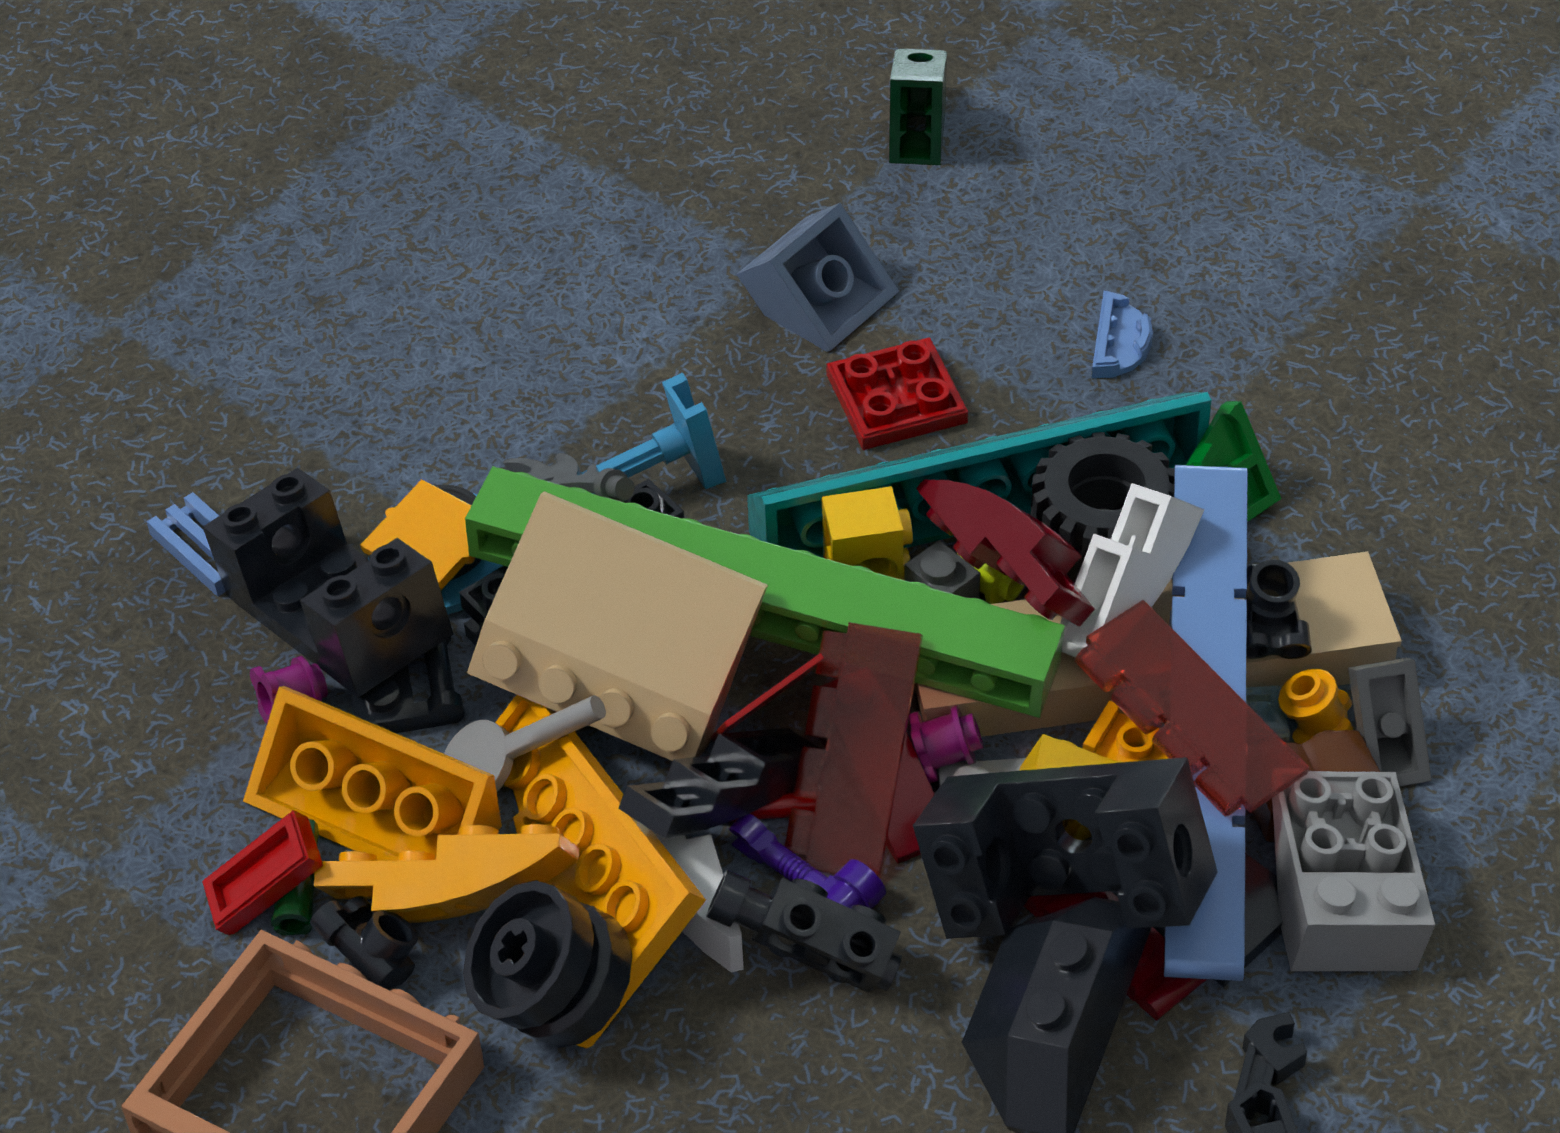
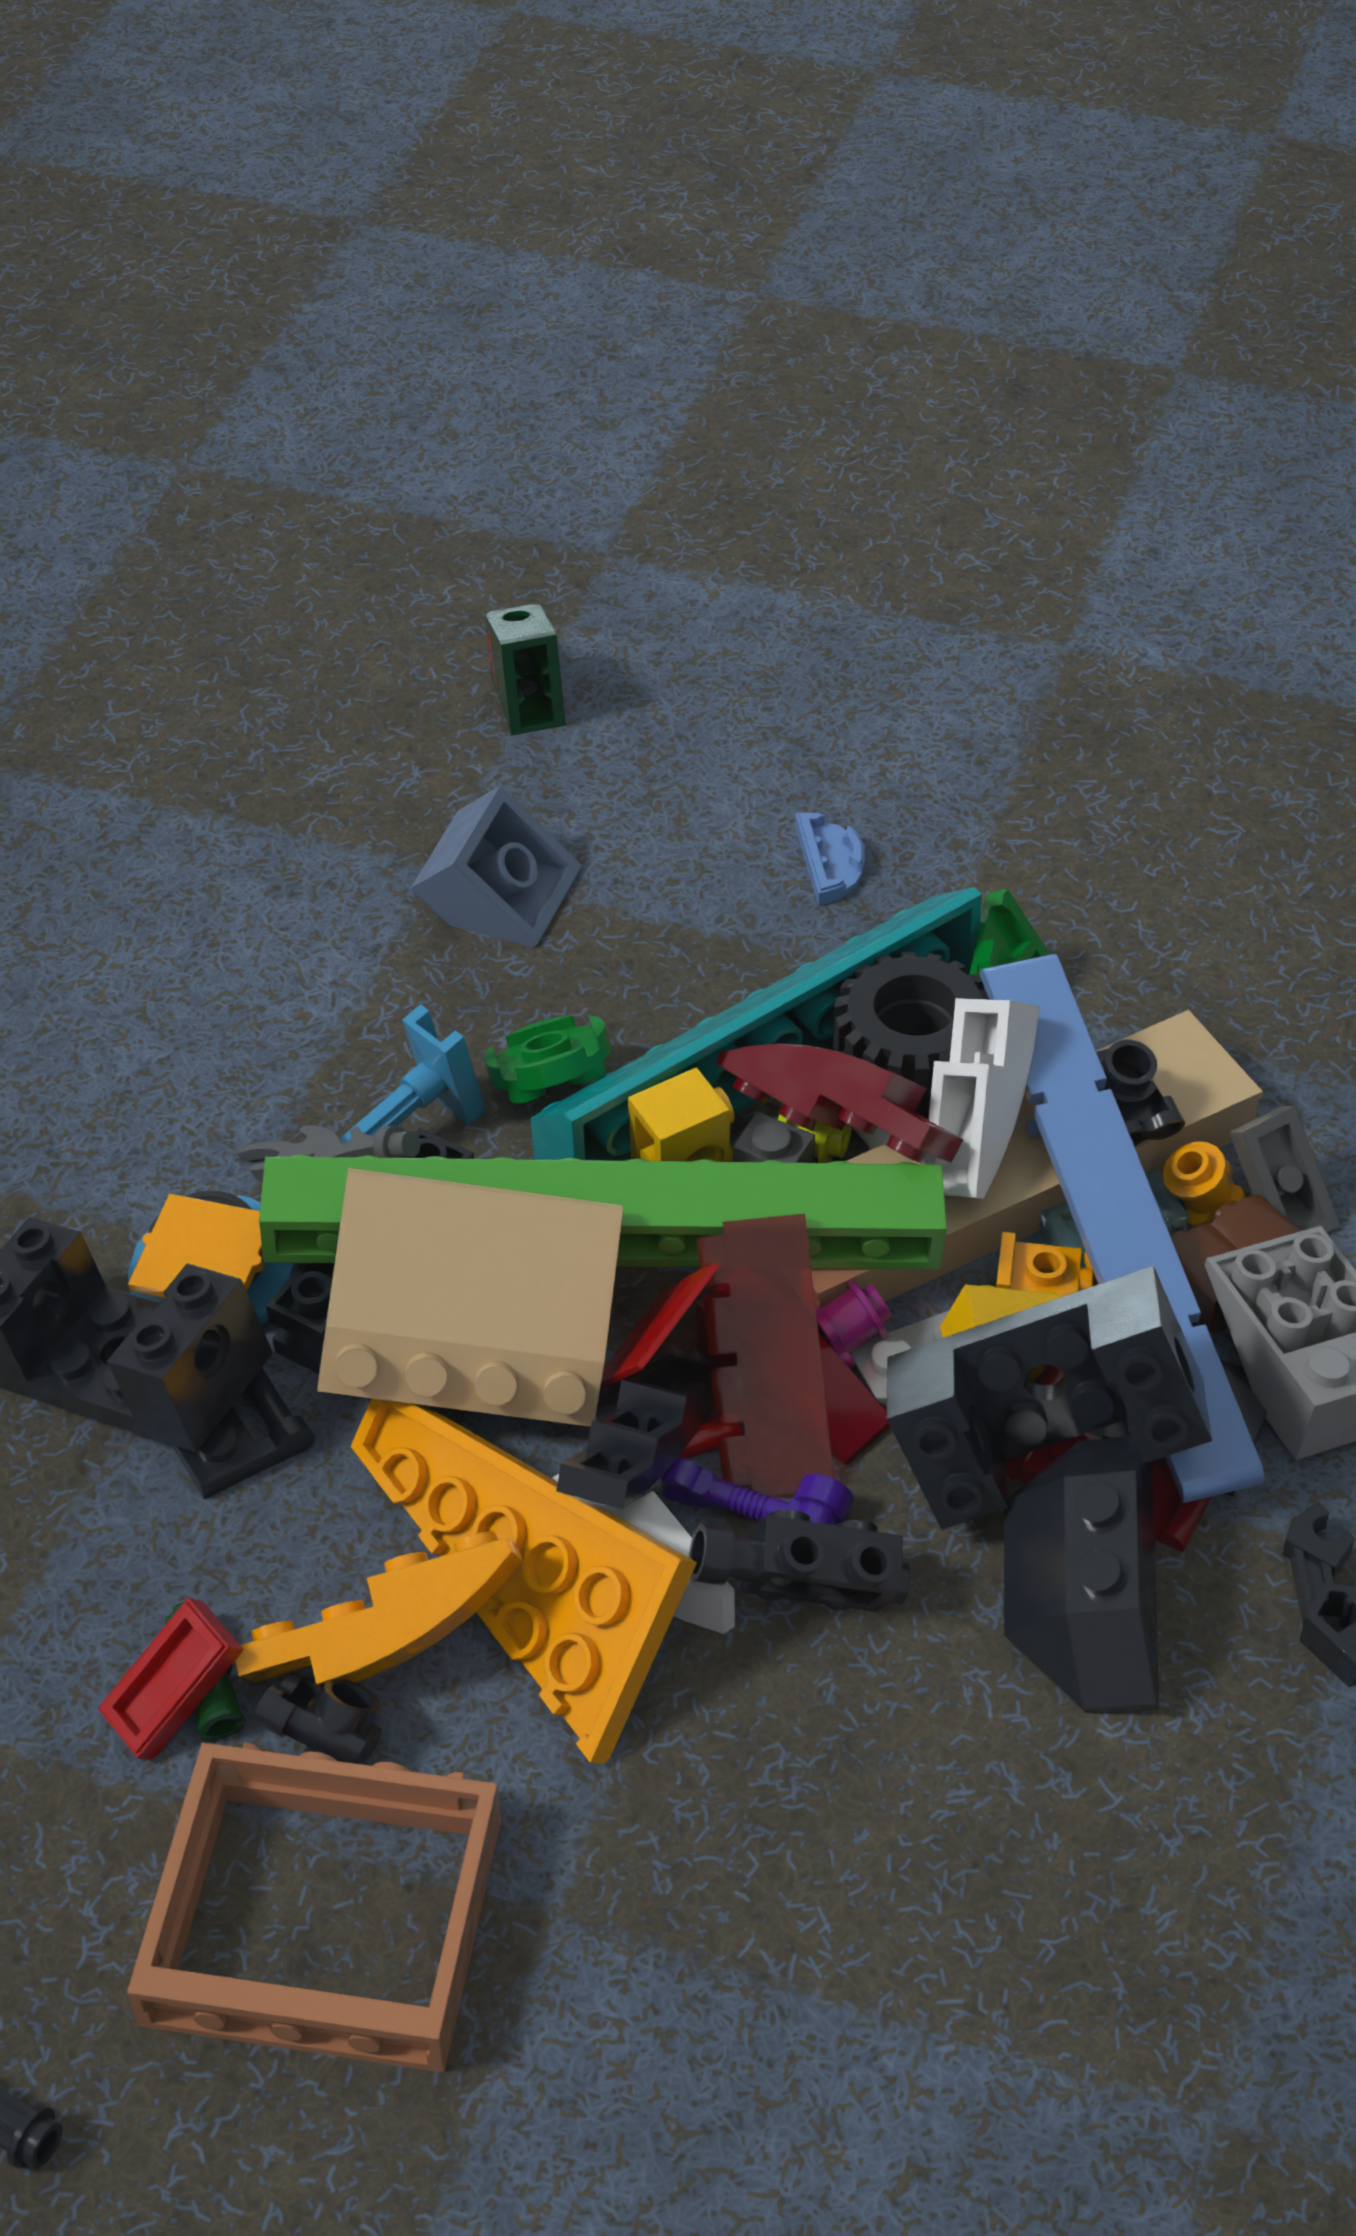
camera: 20 degrees left, 0 degrees up
(298, 676) = (108, 1468): magenta brick -> none
(364, 781) = (244, 1544): light orange slope -> none
(494, 749) = (360, 1477): light grey piece -> none
(547, 964) = (543, 1684): black wheel -> none
(789, 446) = (548, 1056): none -> green plate
(896, 393) = (627, 971): red tile -> none
(1199, 710) = (1119, 1219): clear red windscreen -> none

